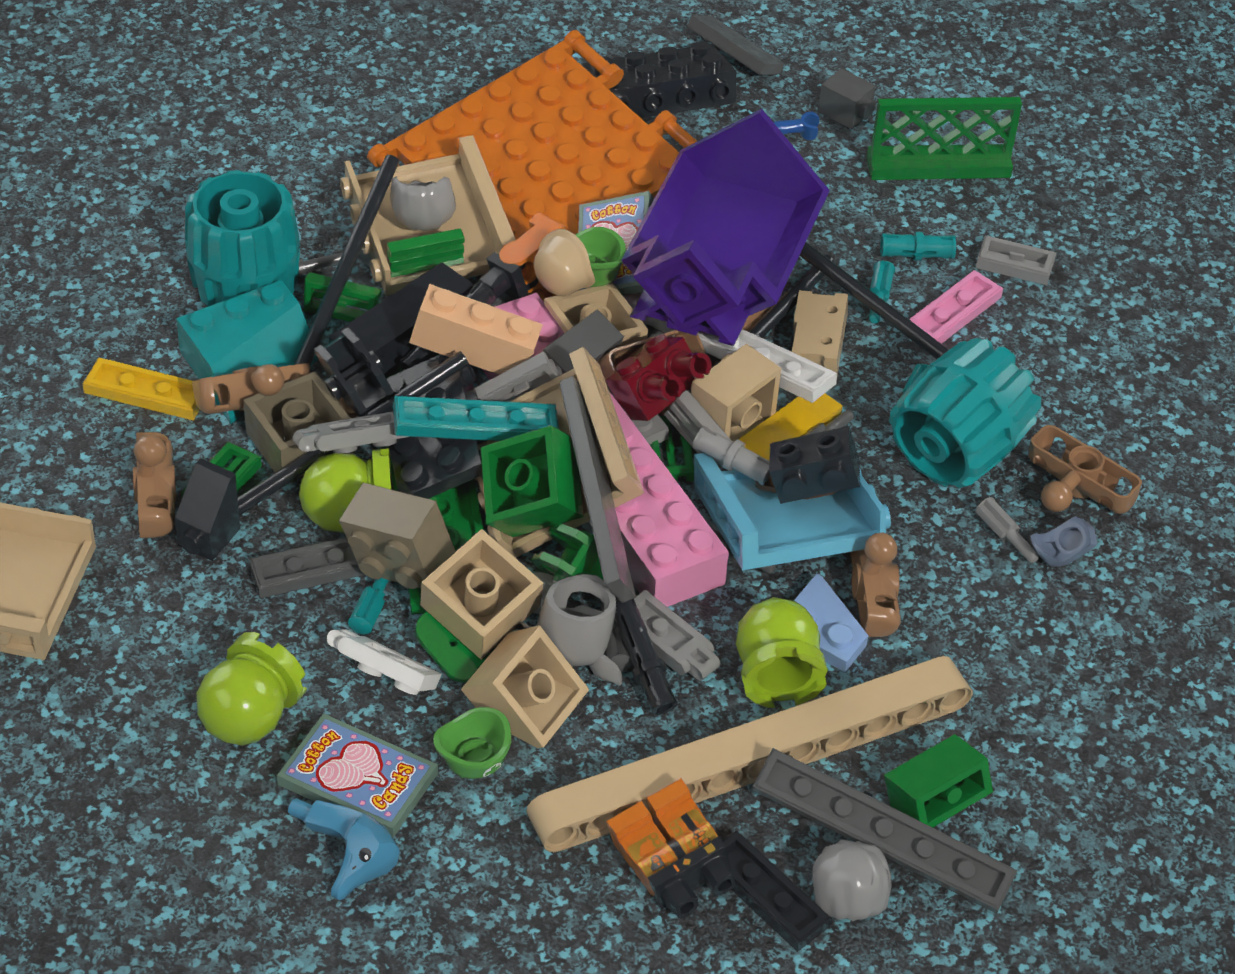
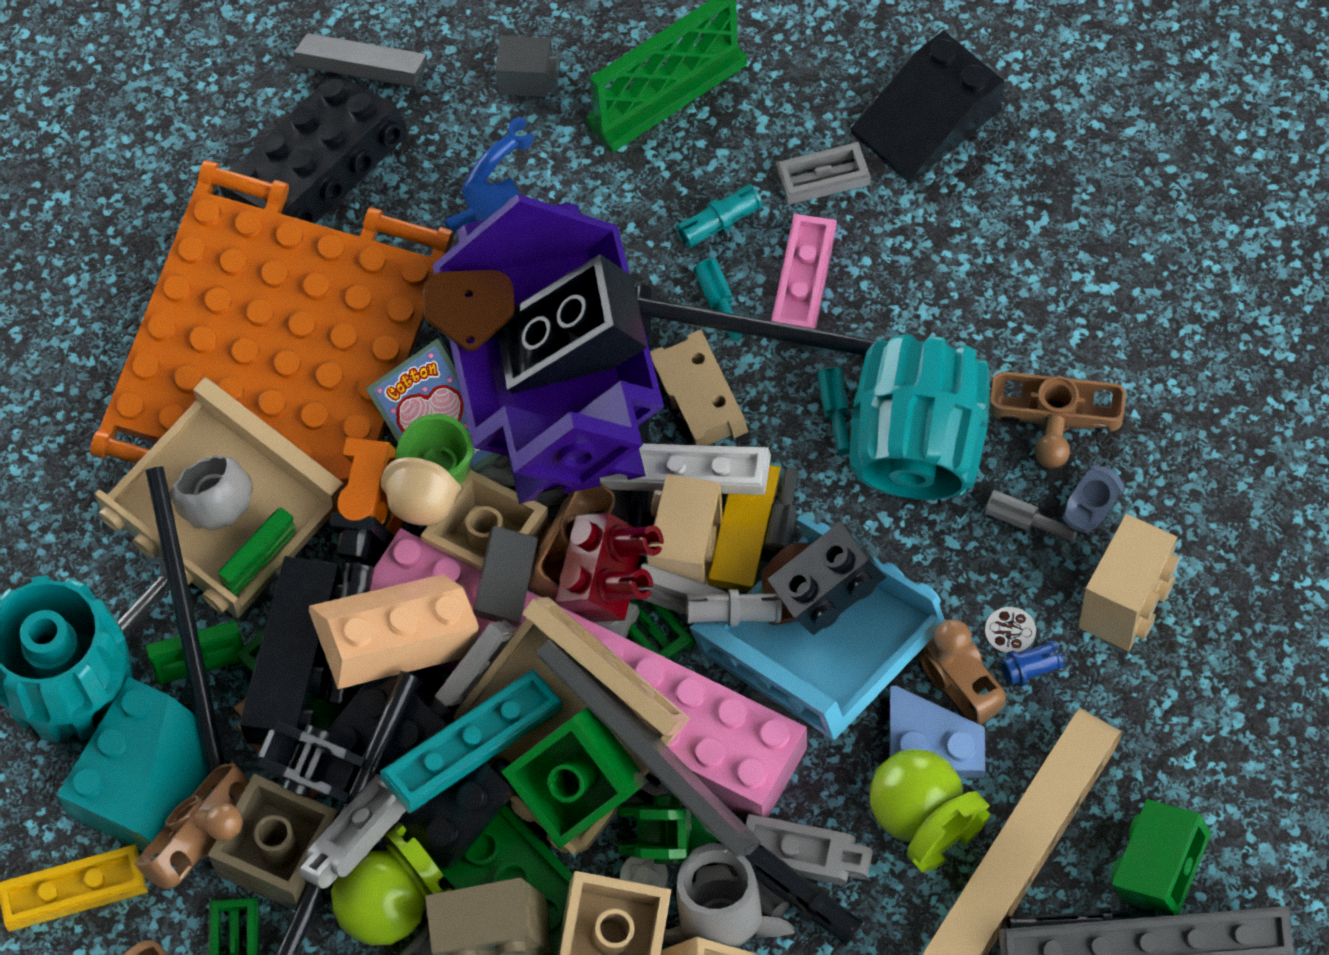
camera: 25 degrees left, 15 degrees up
(672, 181) = (473, 316): none -> reddish brown piece
(751, 223) = (573, 328): none -> black slope
(936, 616) = (1031, 663): none -> blue pin
(939, 593) = (1010, 629): none -> white sticker
(1048, 596) = (1129, 583): none -> tan brick
(1128, 256) = (930, 107): none -> black slope

